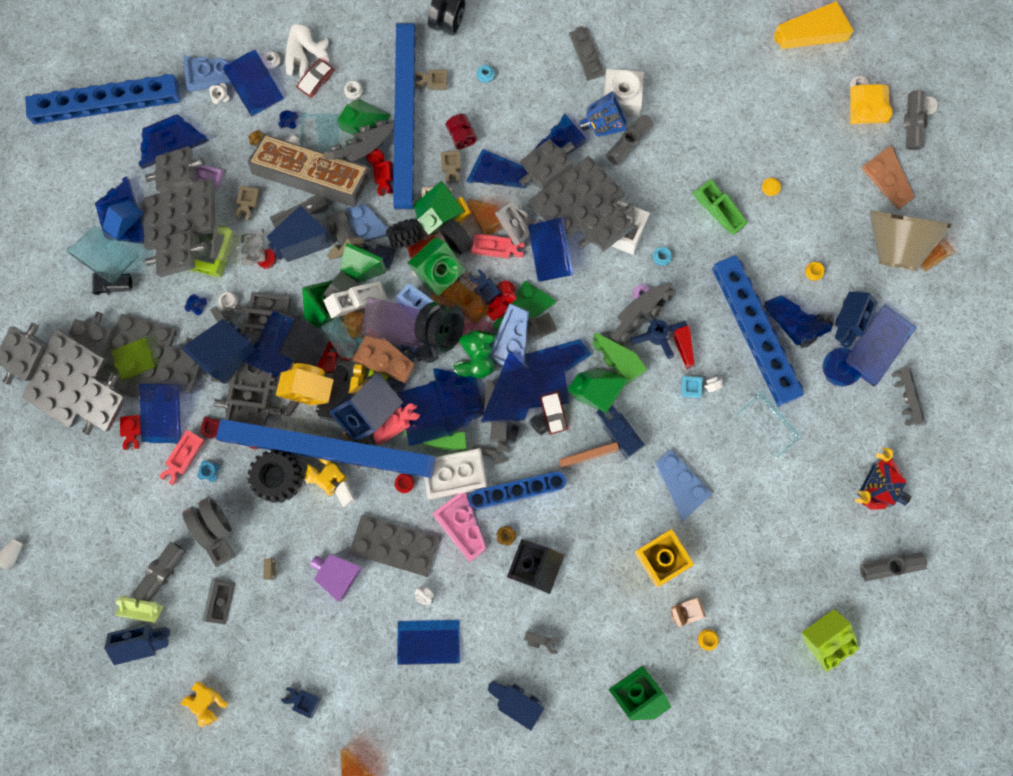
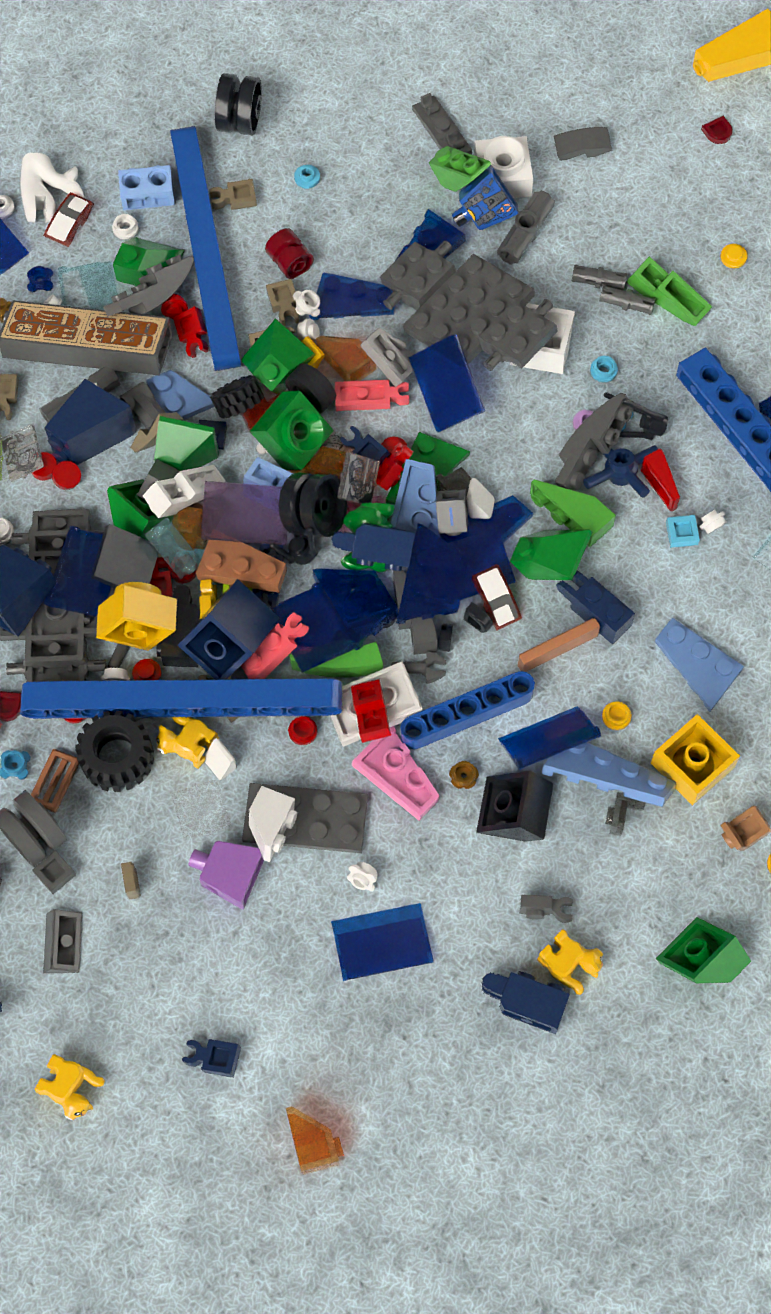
camera: 10 degrees left, 10 degrees down
(237, 494) = (53, 807): none -> nougat tile
(279, 269) = (66, 475): none -> red tile
(285, 423) = (115, 674): none -> white plate
(307, 422) = (146, 670): none -> red plate
(367, 547) = (269, 818): none -> white slope
(372, 68) = (146, 187): none -> light blue brick
(451, 481) = (370, 710): none -> red slope
(463, 190) = (308, 328): none -> white plate
(469, 168) = (307, 303): none -> white plate
(474, 312) = (358, 479): none -> piece
(476, 364) = (377, 544): none -> dark blue hinge
(534, 347) = (452, 512): none -> brick
(547, 681) = (568, 958): none -> yellow animal
(556, 340) = (479, 500): none -> white slope
(568, 521) = (549, 737): none -> clear blue piece
(589, 88) = (456, 168): none -> bright green slope
(596, 549) = (610, 773): none -> medium blue wing
(603, 584) = (616, 815): none -> clear smoke bracket
(618, 512) = (616, 715): none -> yellow plate
(673, 186) = (599, 277): none -> dark grey pin
(683, 80) = (588, 141): none -> dark grey slope
(686, 302) = (651, 422): none -> black plant
(689, 207) = (627, 299): none -> dark grey pin
(781, 88) = (718, 131): none -> dark red tile

